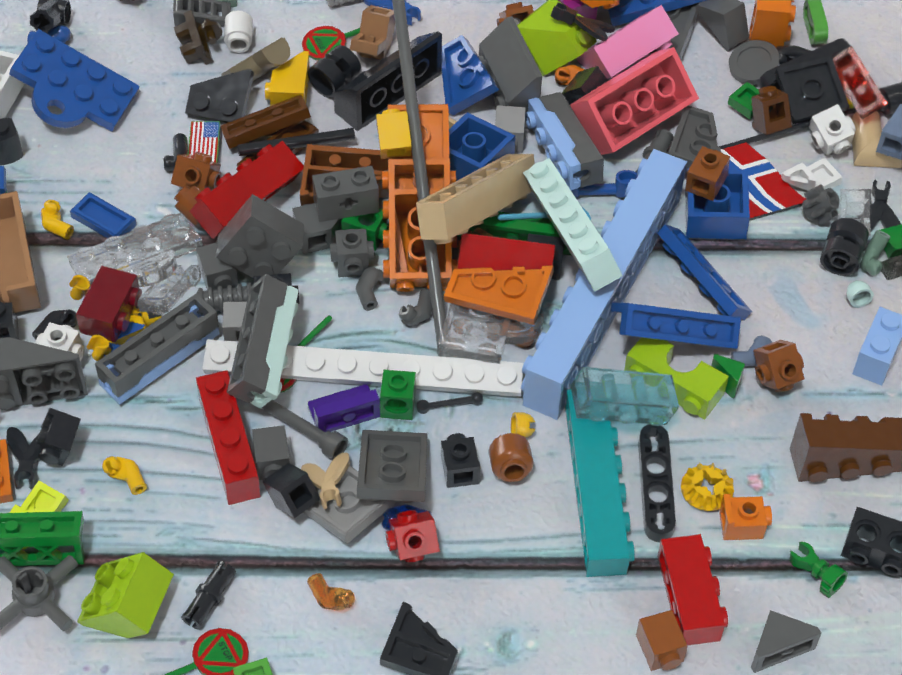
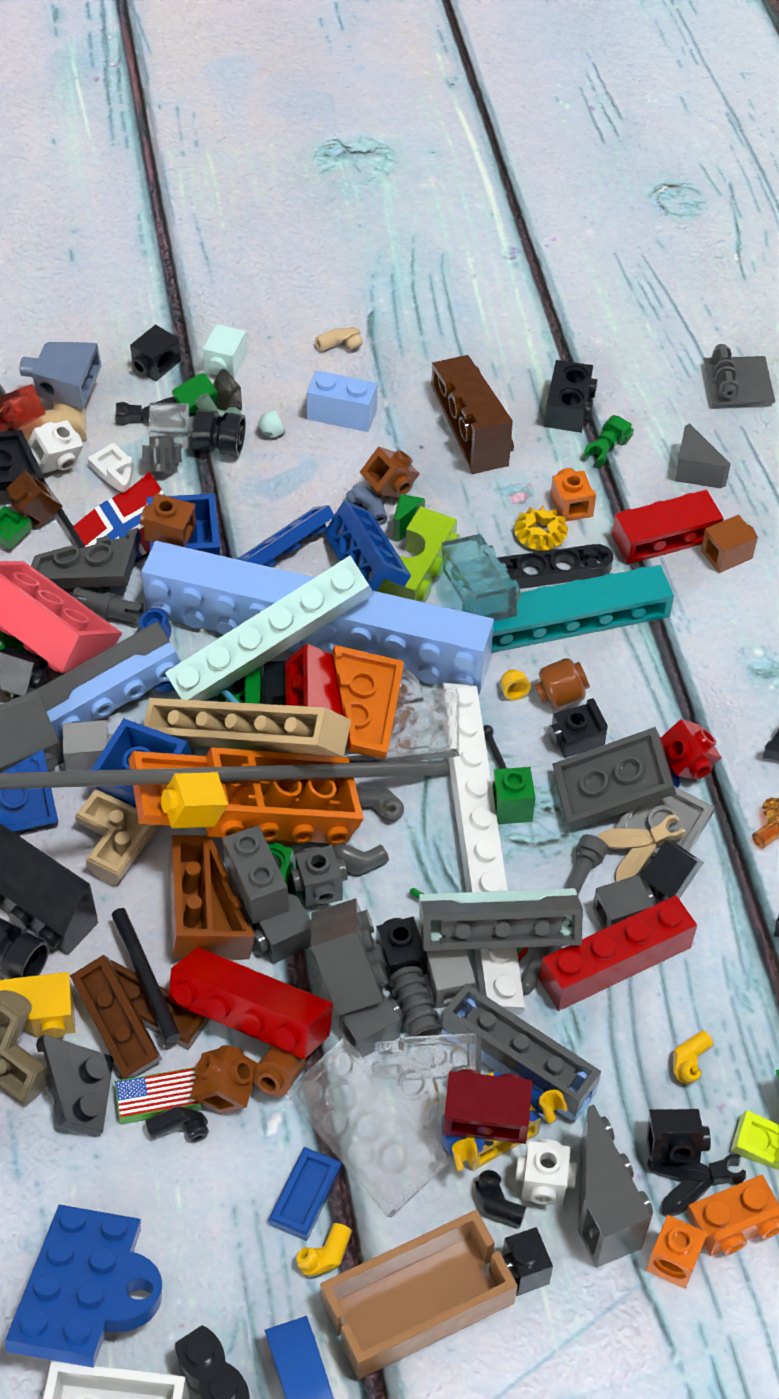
camera: 100 degrees left, 0 degrees up
(345, 408) = (537, 851): dark purple panel -> none

